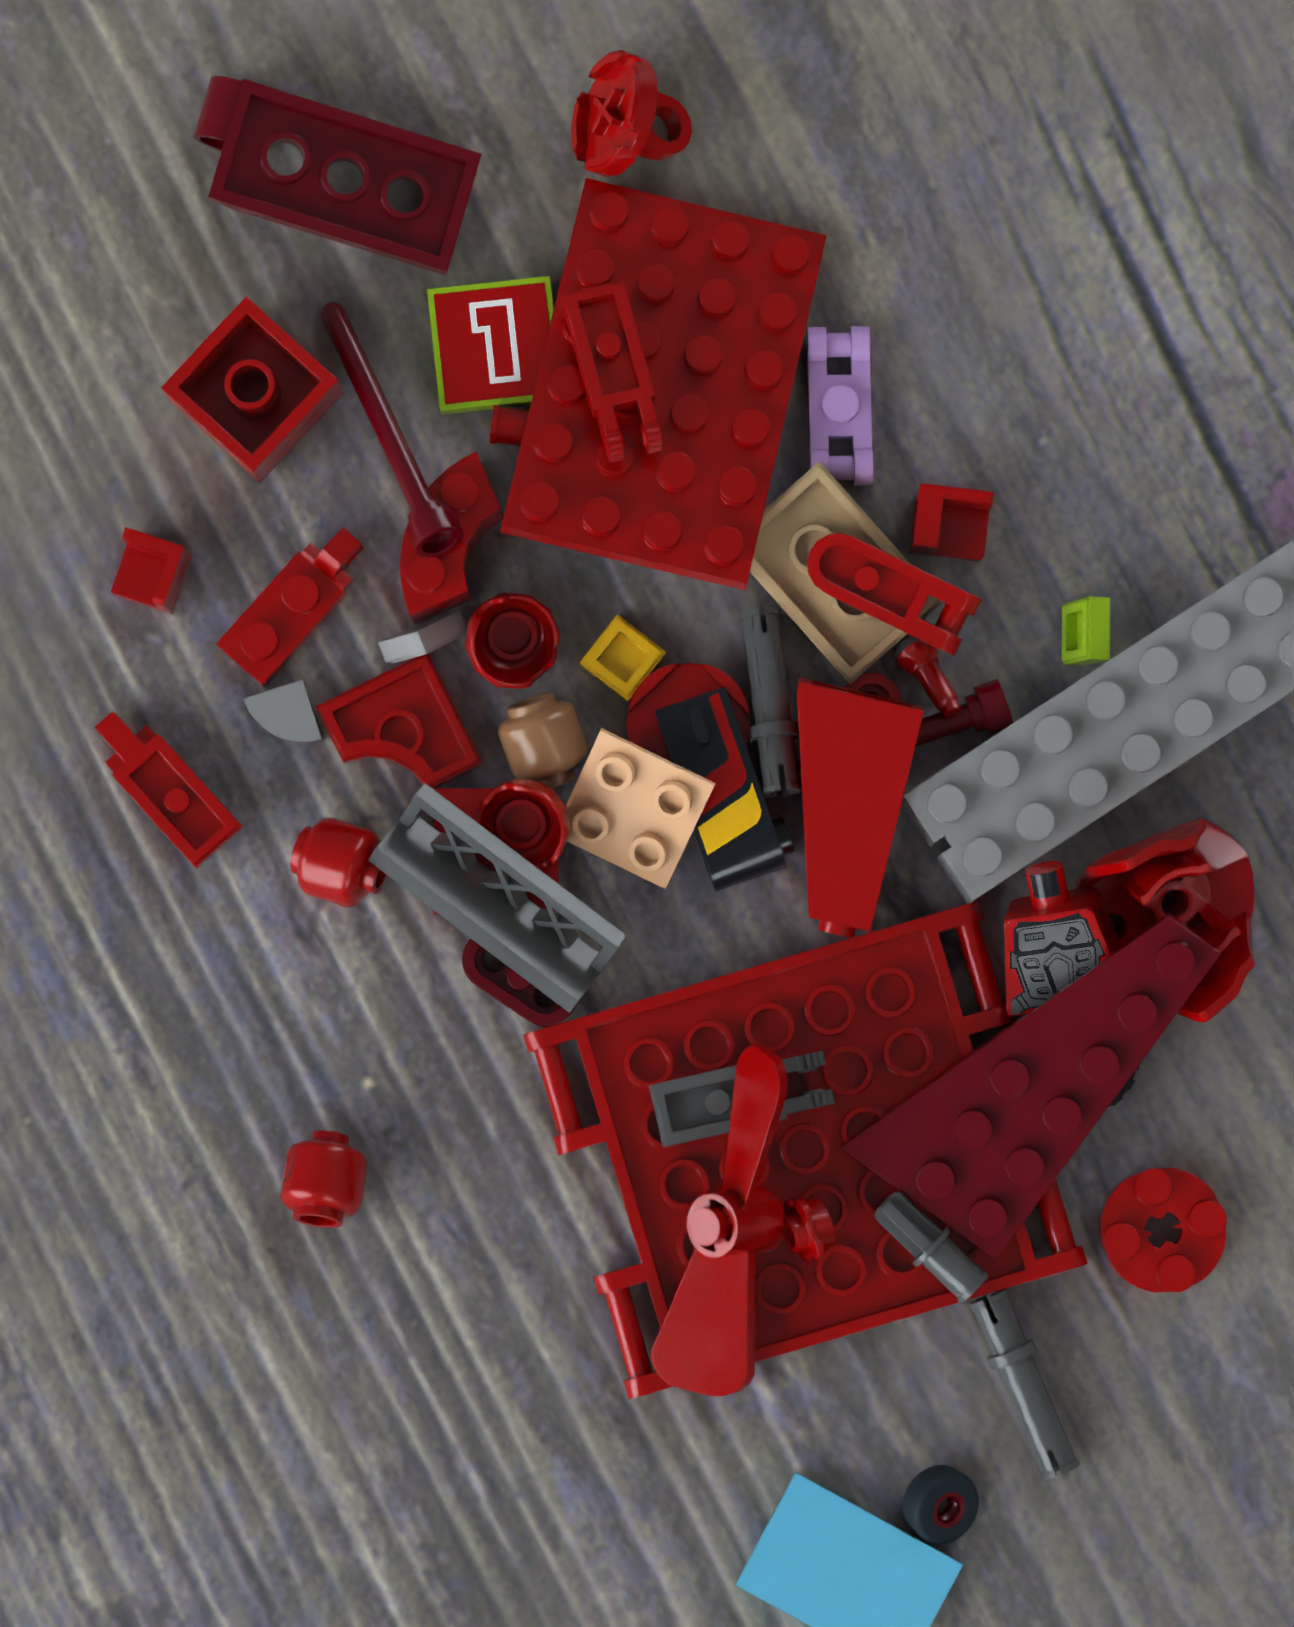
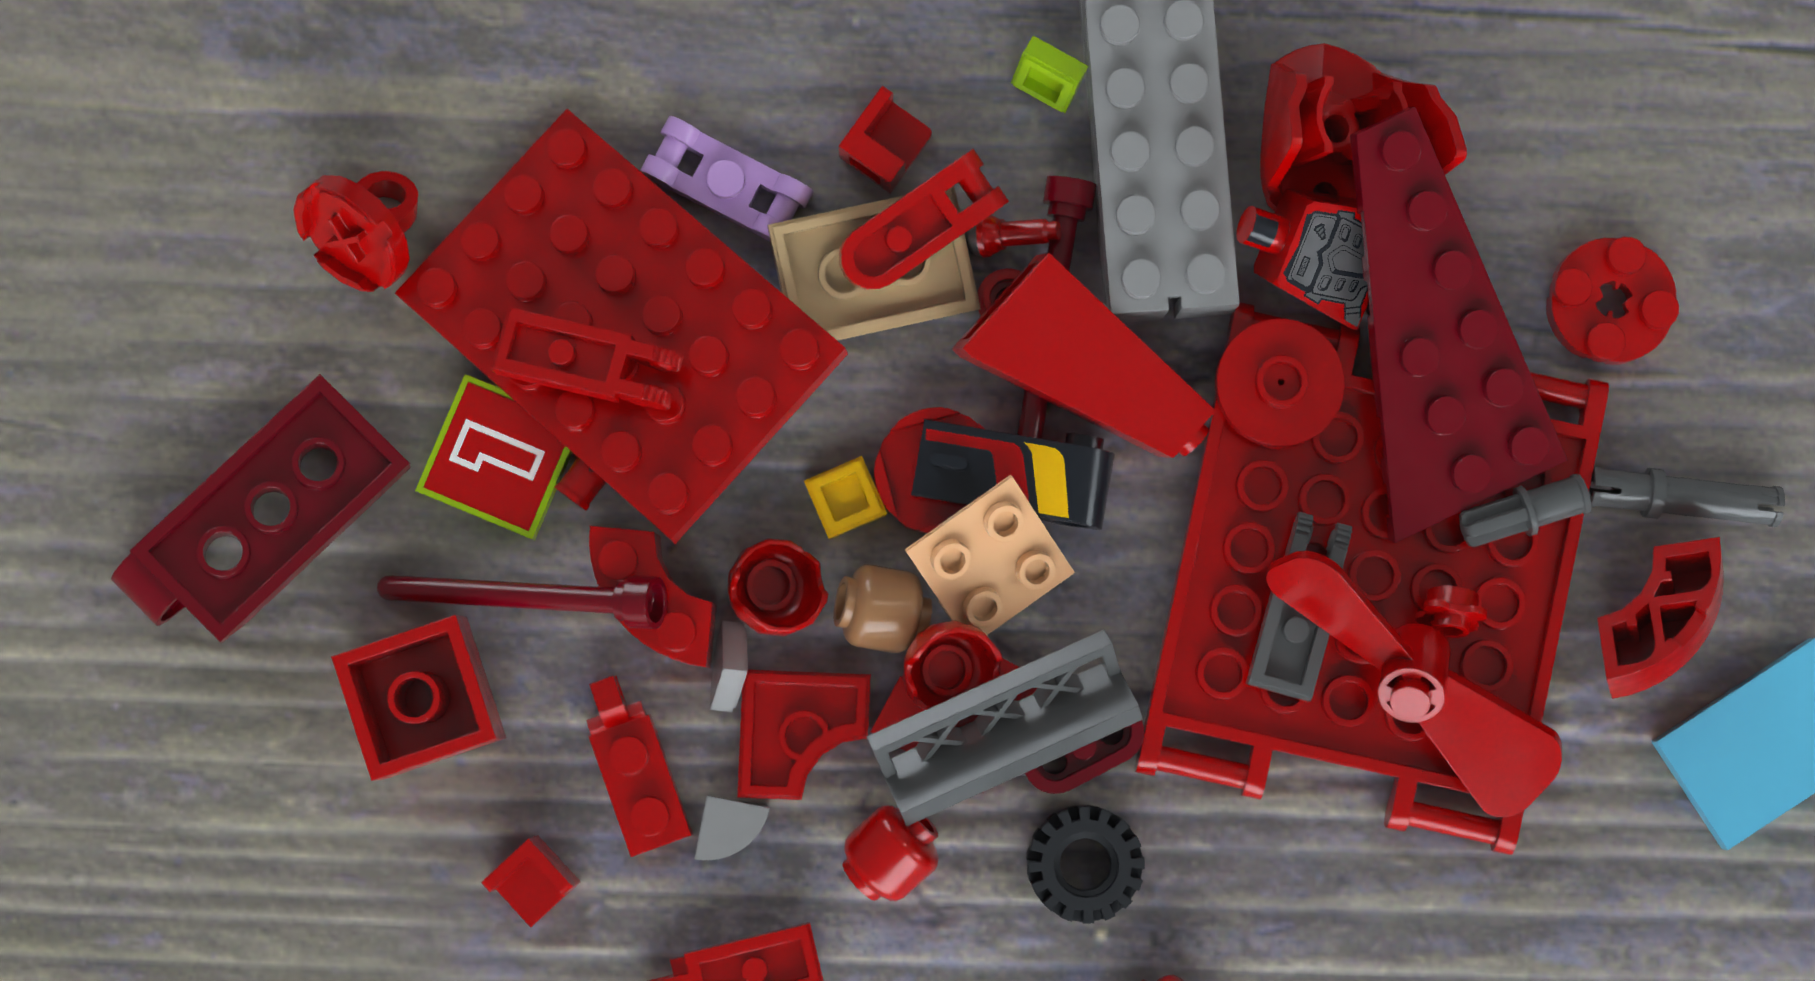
camera: 65 degrees left, 0 degrees up
(383, 1020) = (1124, 870): none -> black tyre
(773, 727) = (982, 396): dark grey pin -> none
(897, 982) = (1274, 412): none -> red piece
(905, 1420) = (1666, 620): none -> red brick
(926, 1494) = (1736, 635): black wheel -> none

